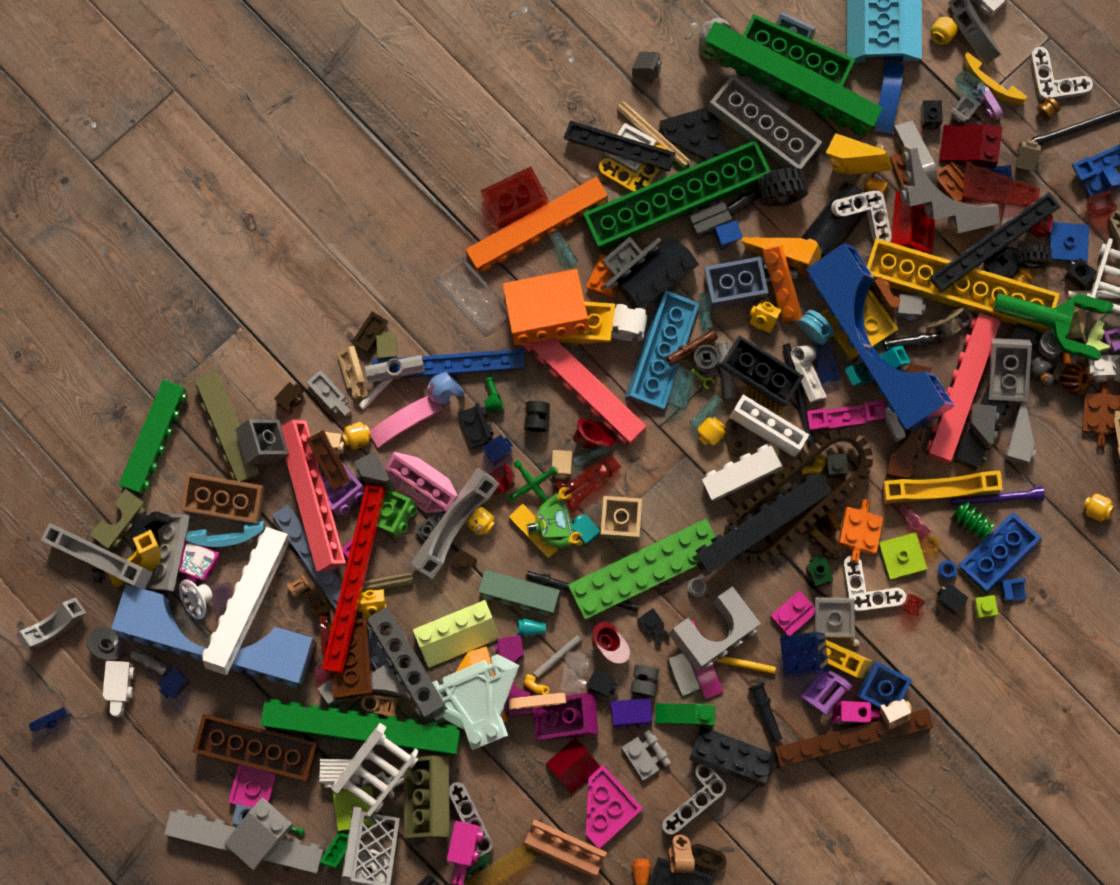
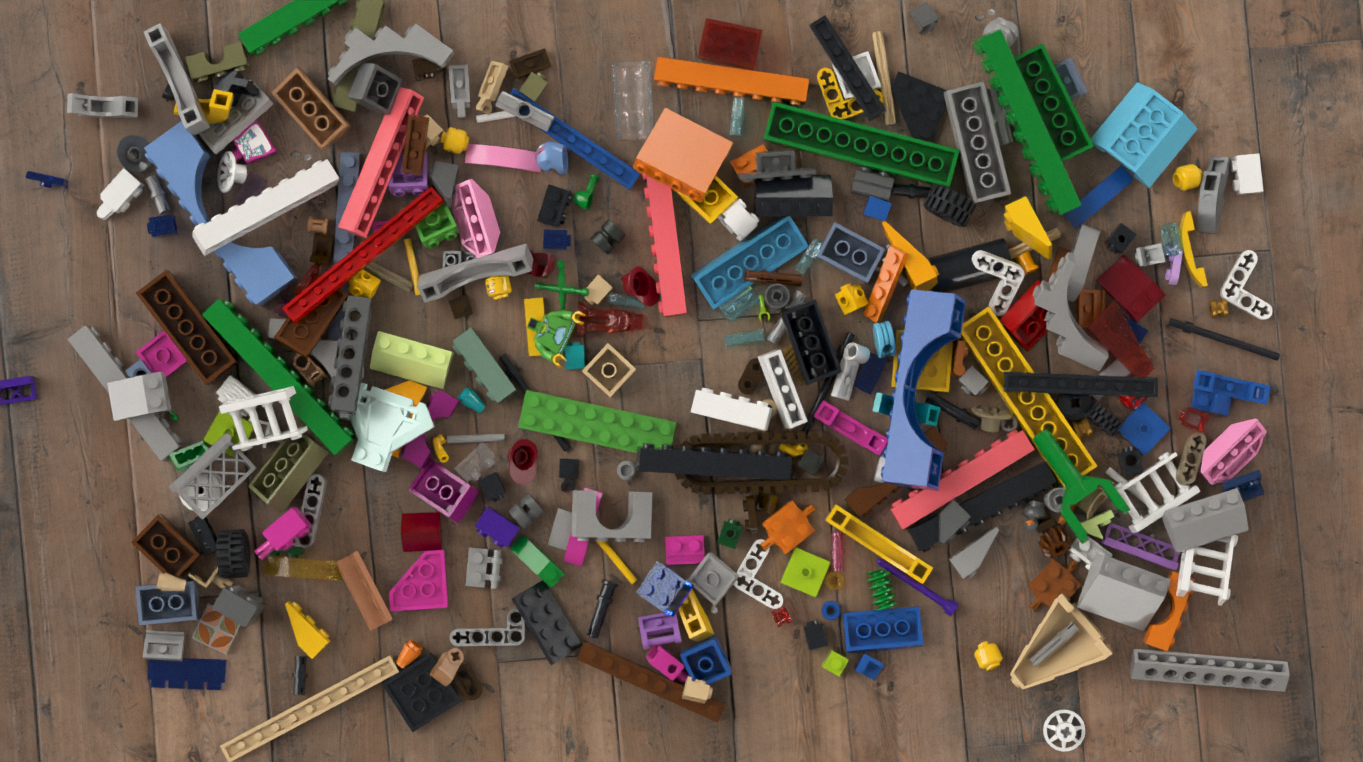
camera: 35 degrees right, 10 degrees up
(201, 538) = (288, 143): medium azure slope -> none
(245, 397) = (387, 42): none -> light grey arch
(400, 560) = (412, 264): none -> yellow bar
(537, 701) = (429, 463): light nougat beam -> none
(711, 431) = (735, 356): yellow head -> none
(1009, 369) = (1007, 494): light grey slope -> none
(1028, 155) = (1168, 334): dark tan brick -> none

